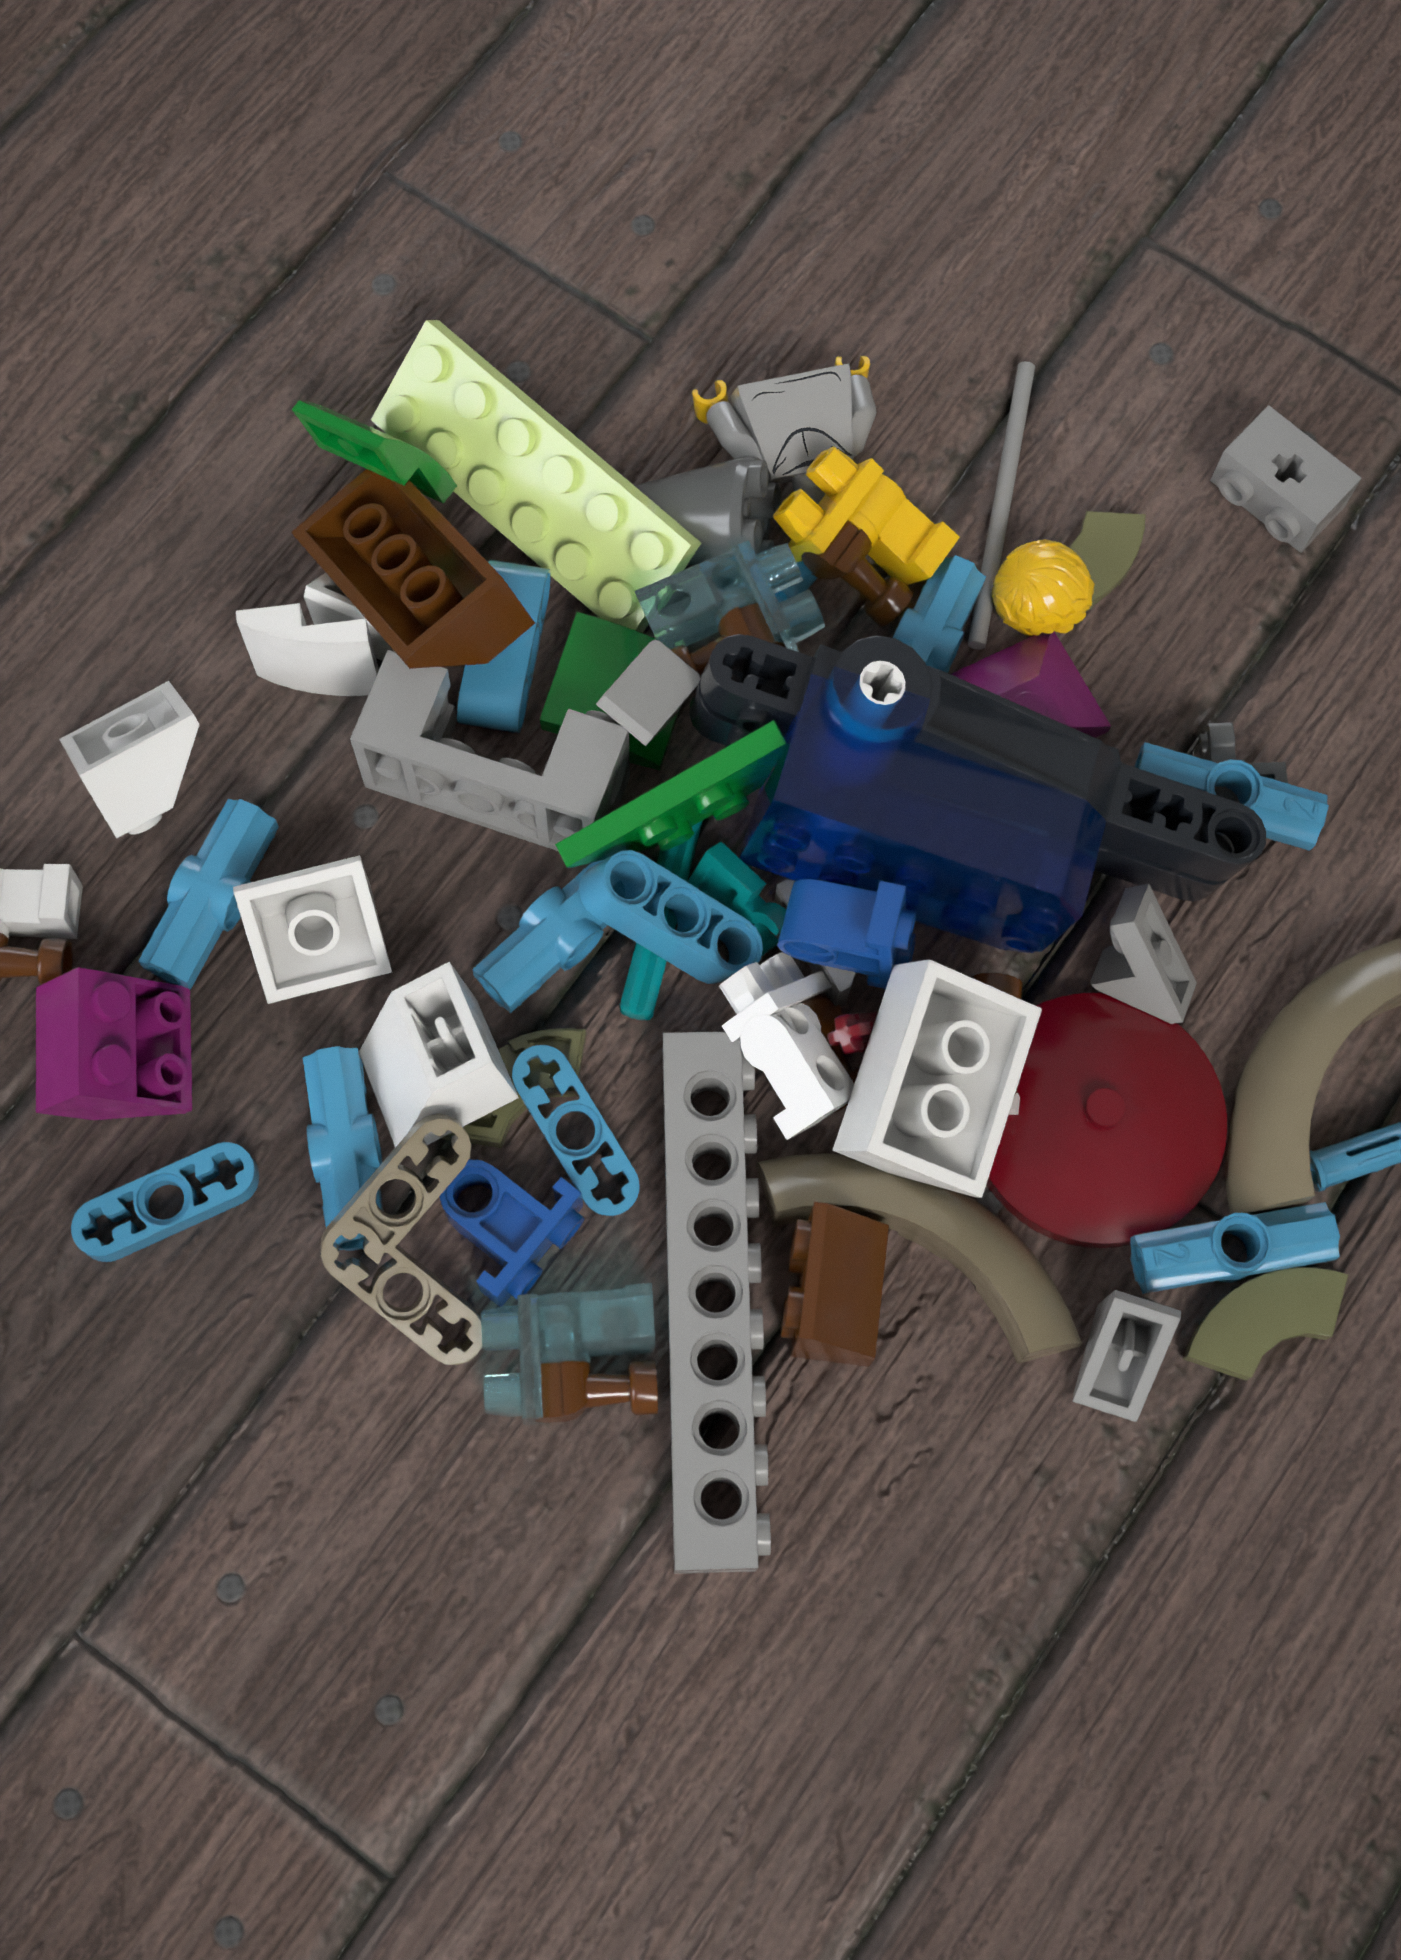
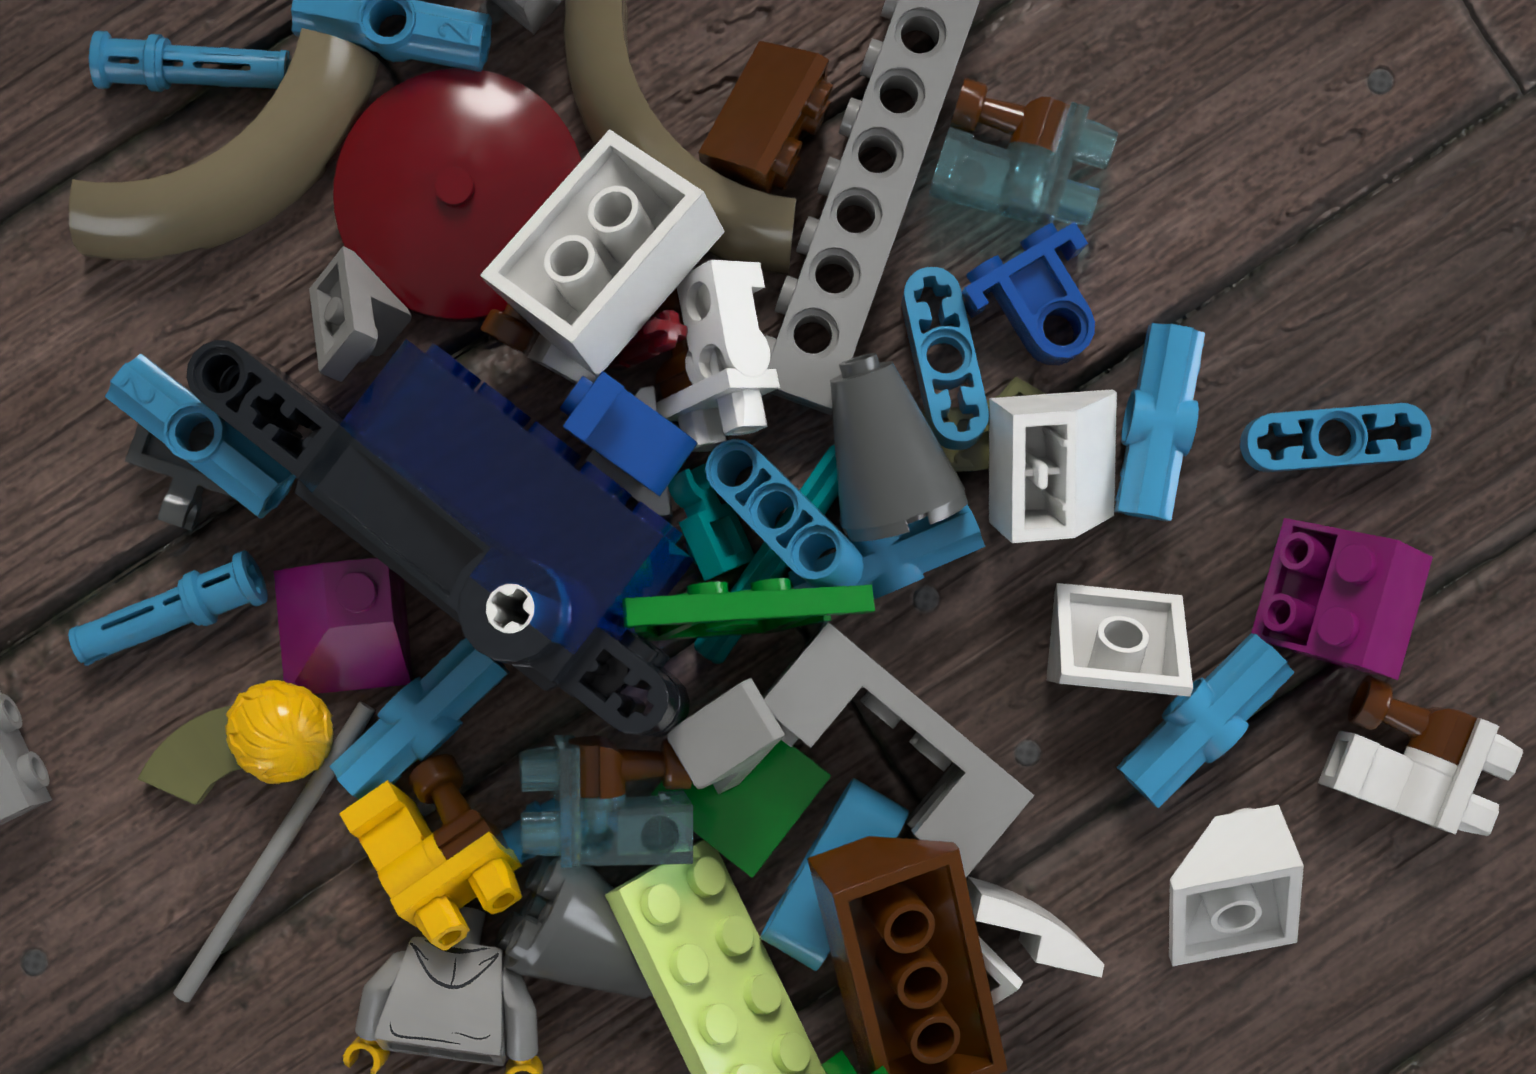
camera: 155 degrees left, 15 degrees up
(386, 1231) = (1154, 314): dark tan beam -> none
(593, 1001) = (886, 454): none -> dark grey cone
(1167, 674) = (195, 599): none -> dark azure pin

